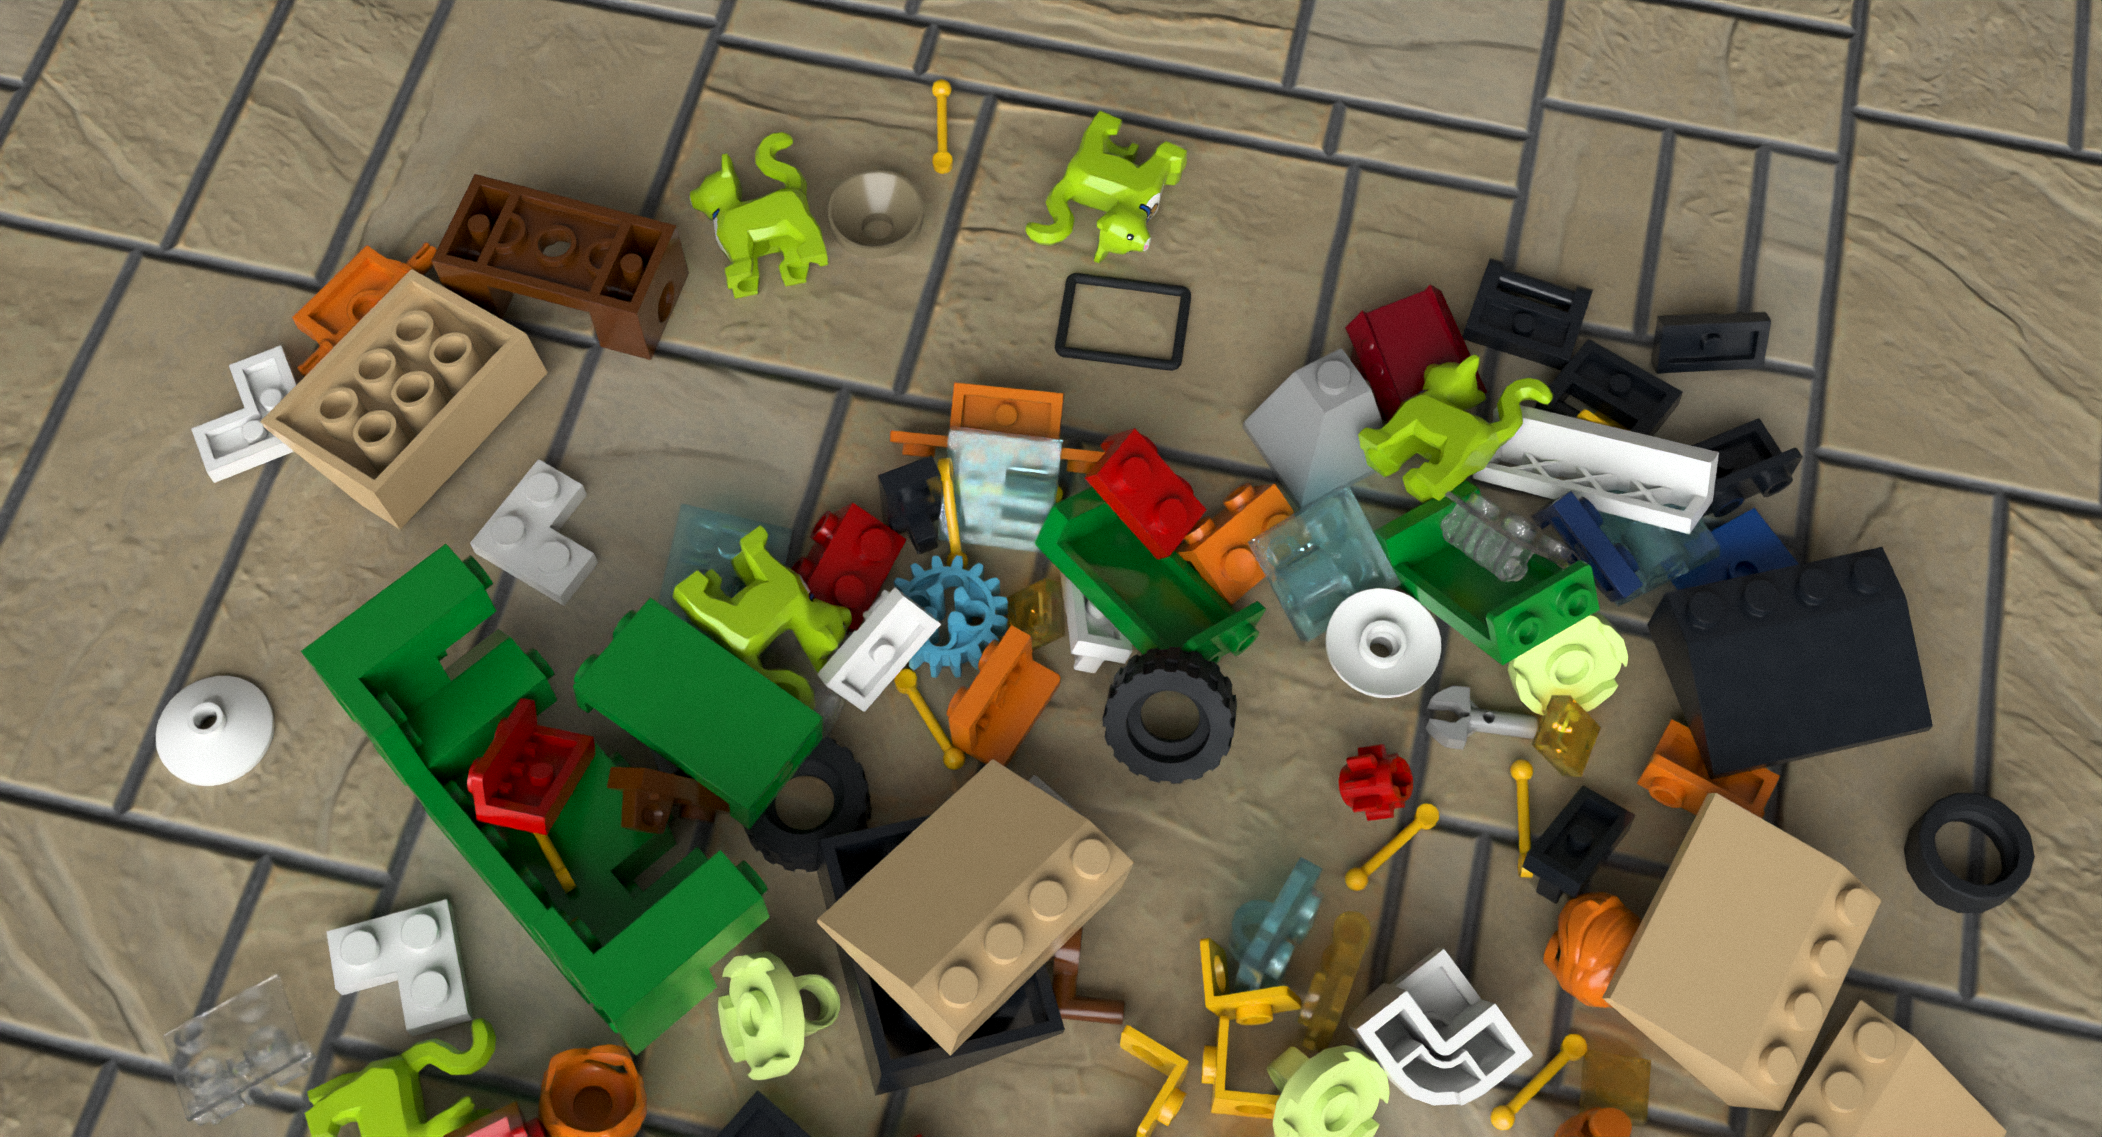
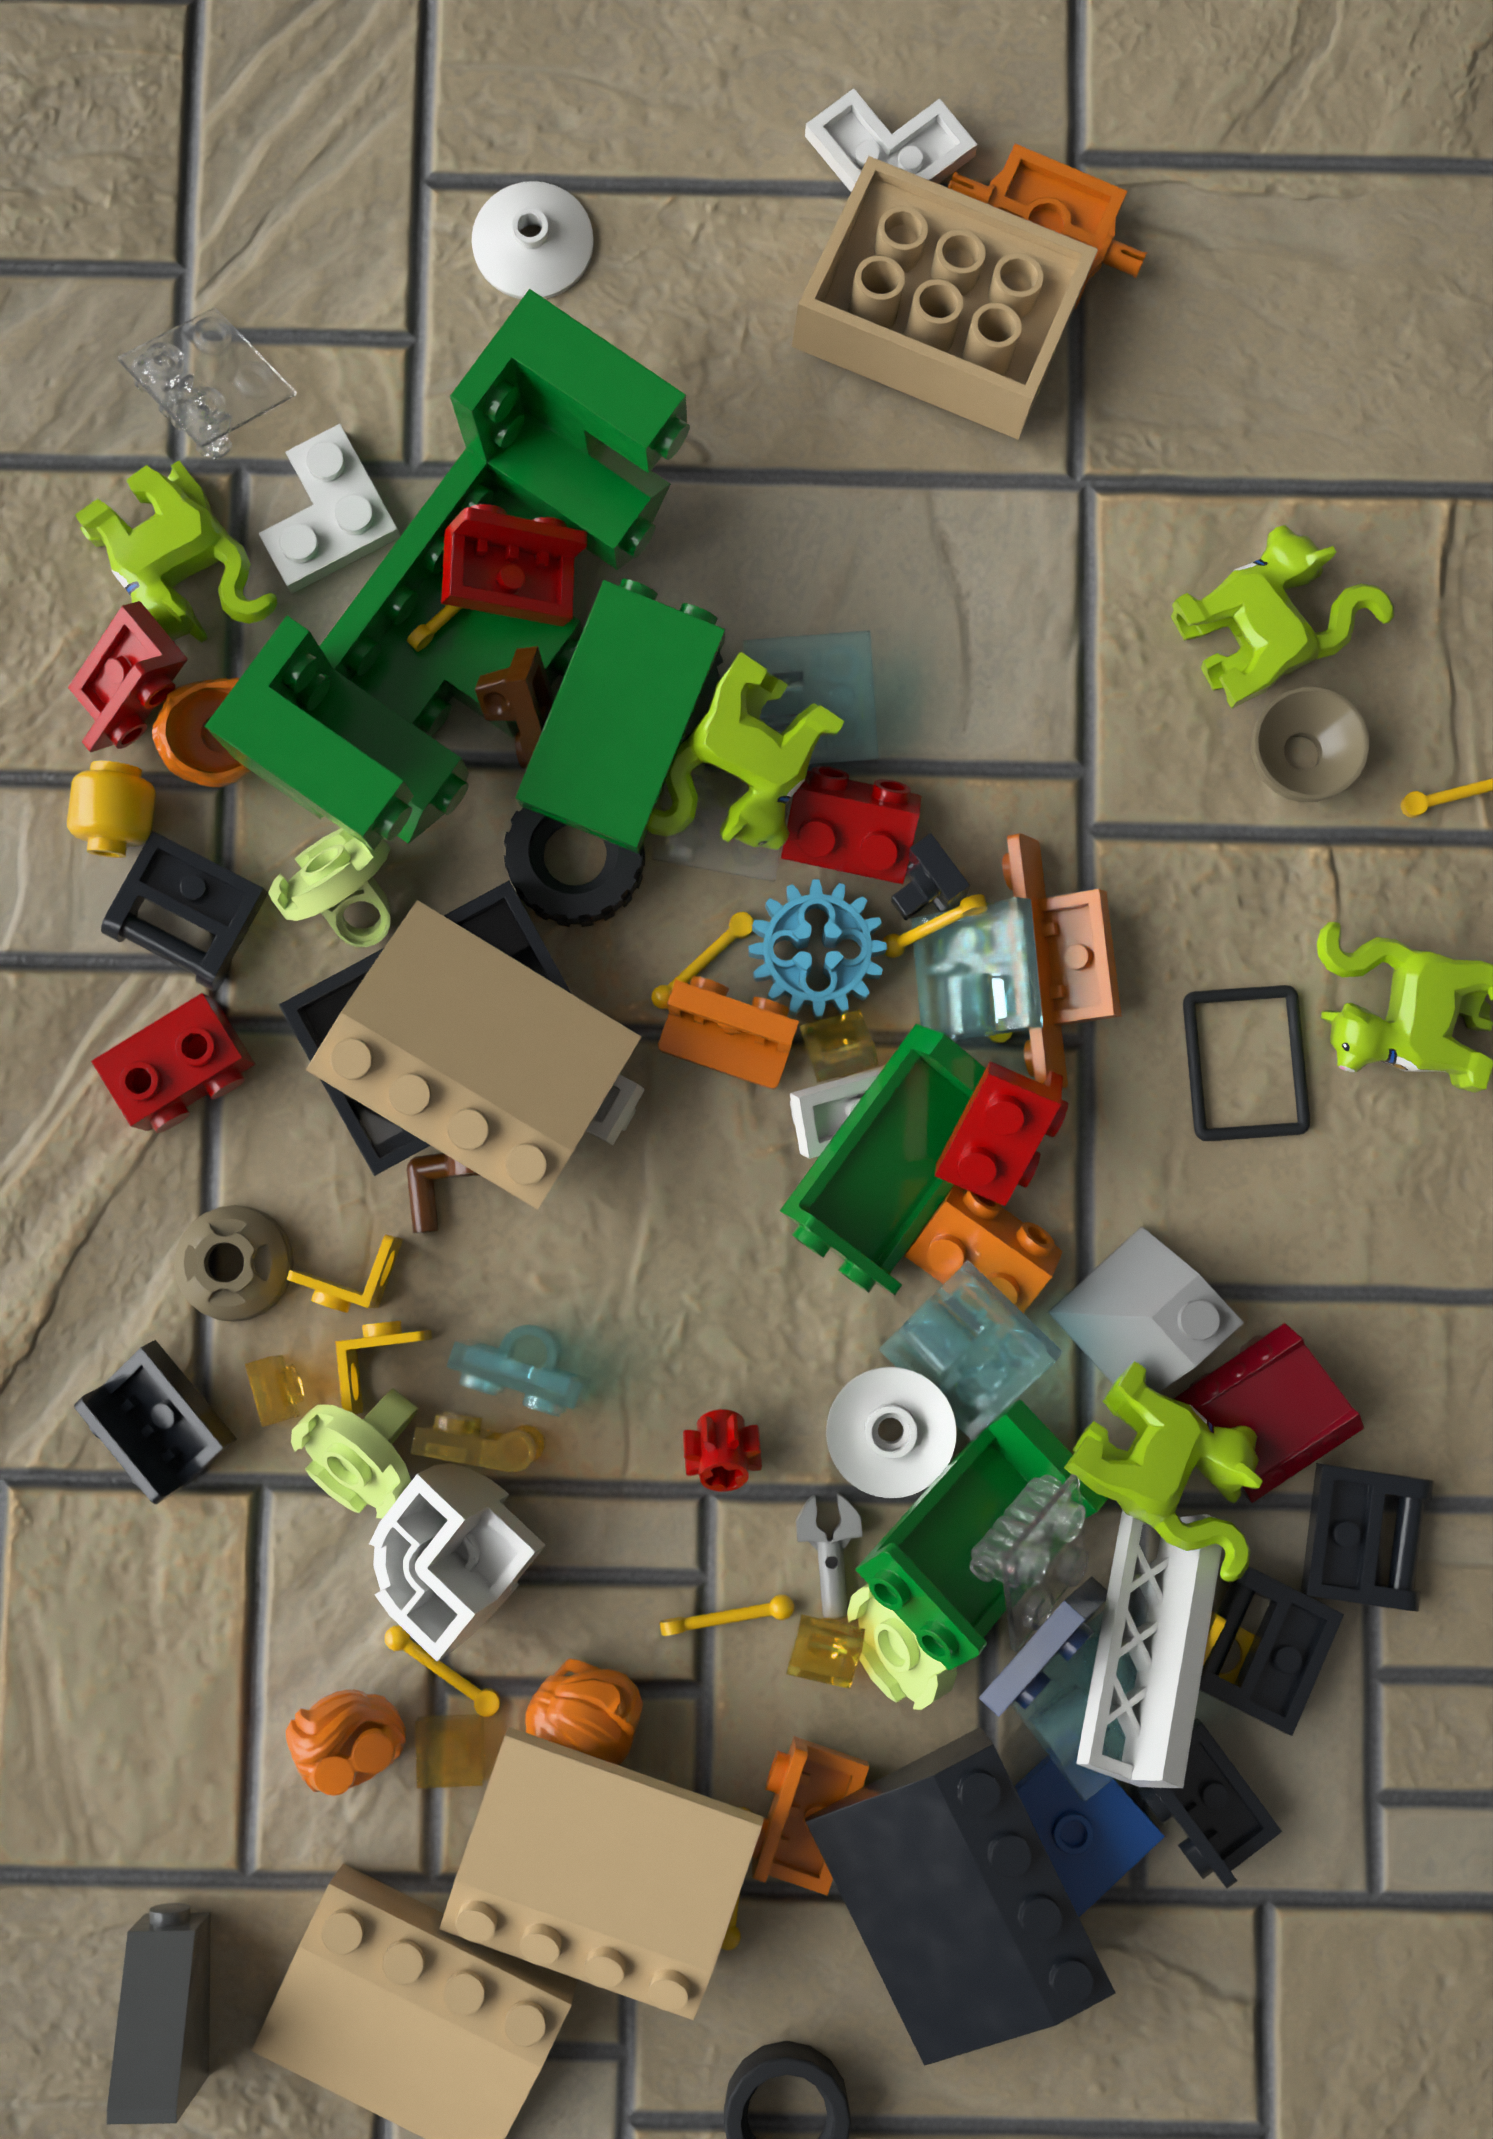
camera: 75 degrees right, 20 degrees up
(526, 539) = (818, 476): white plate -> none
(616, 266) = (1140, 471): reddish brown plate -> none
(879, 649) = (747, 888): white hinge -> none
(1161, 757) = (771, 1214): black tyre -> none
(1246, 1007) = (449, 1327): yellow bracket -> none
(1424, 818) = (706, 1509): yellow hinge -> none
(1577, 844) = (700, 1680): black hinge -> none
(1710, 342) = (1382, 1778): black hinge -> none

